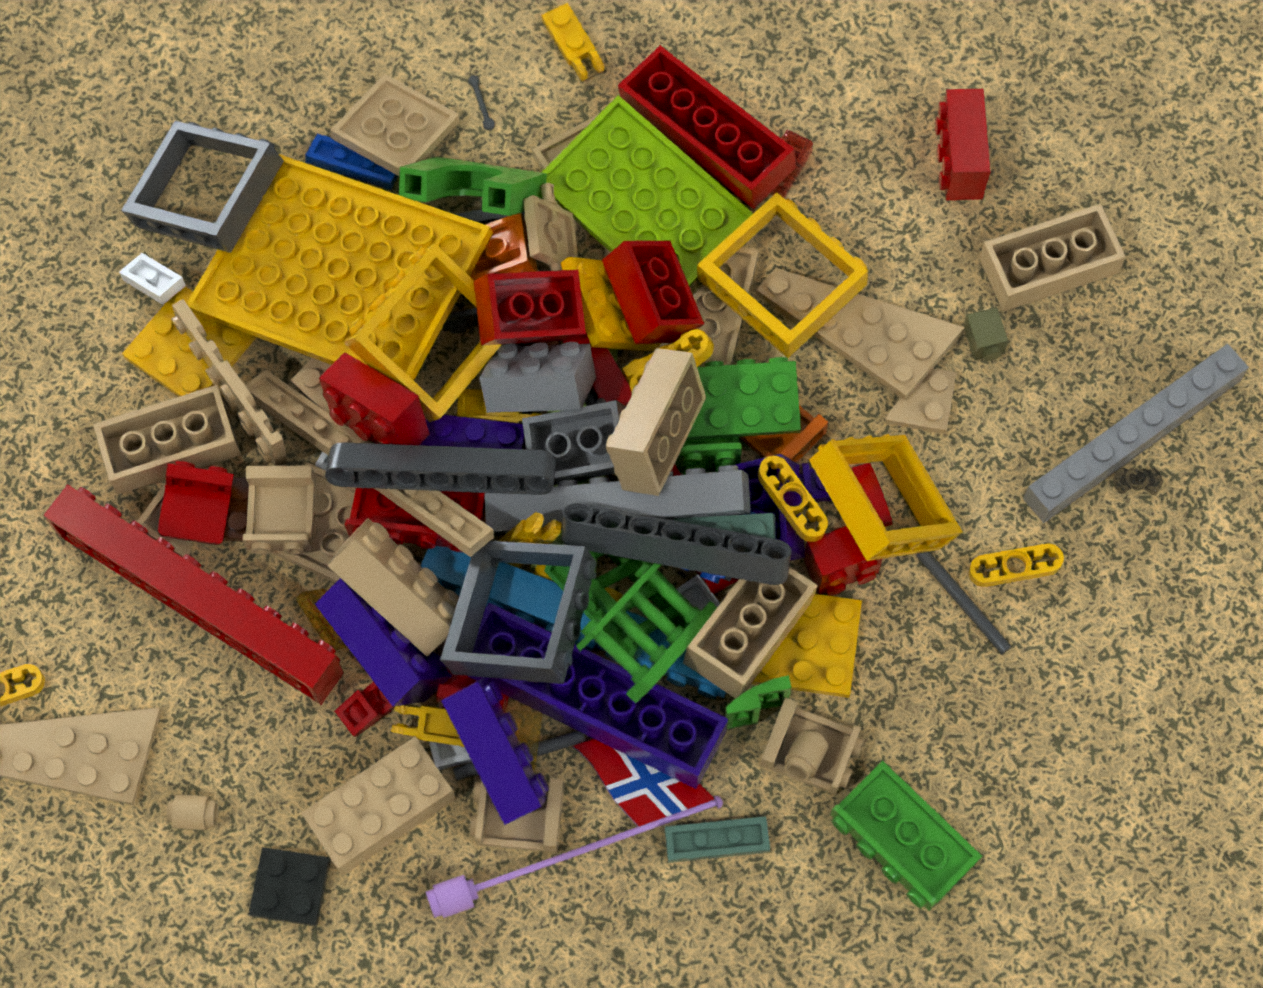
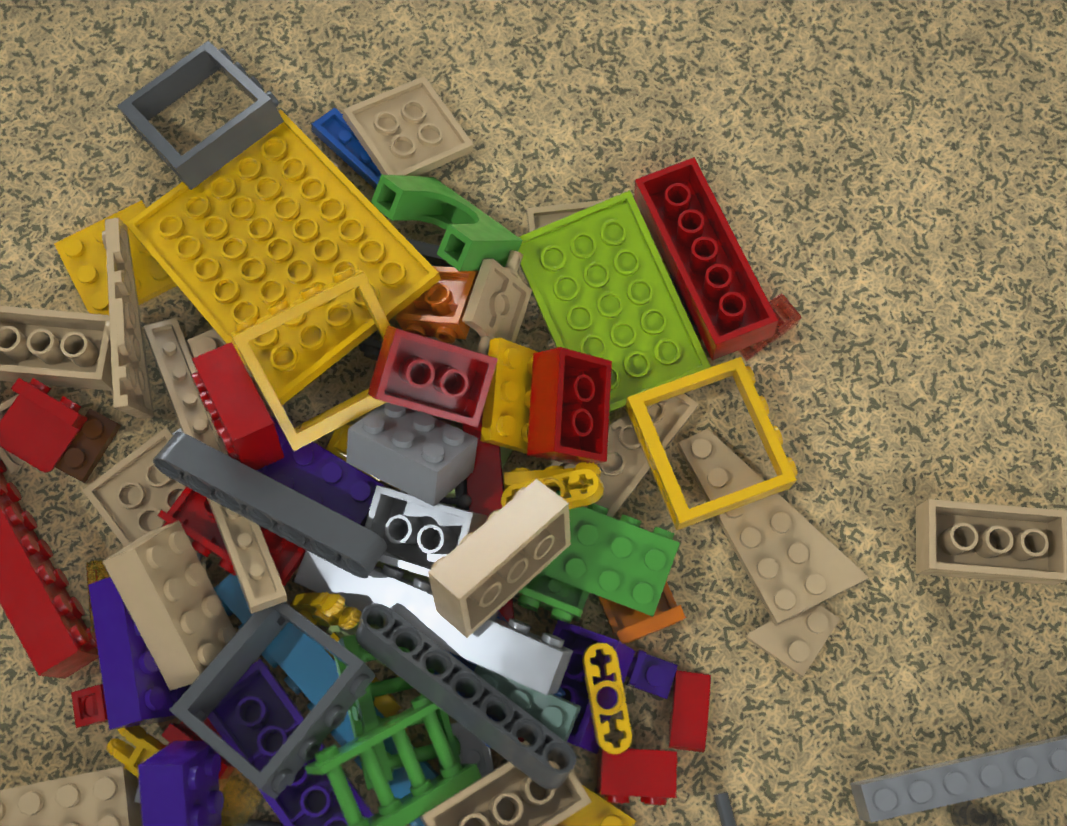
camera: 20 degrees right, 5 degrees up
(152, 278) = (115, 183): white plate -> none
(280, 509) = (113, 468): tan panel -> none
(488, 123) = (499, 164): dark grey hinge -> none
(572, 39) = (616, 115): yellow hinge -> none
(935, 519) = (664, 734): yellow window -> none
(963, 144) = (952, 385): red brick -> none
(985, 334) = (888, 593): olive brick -> none

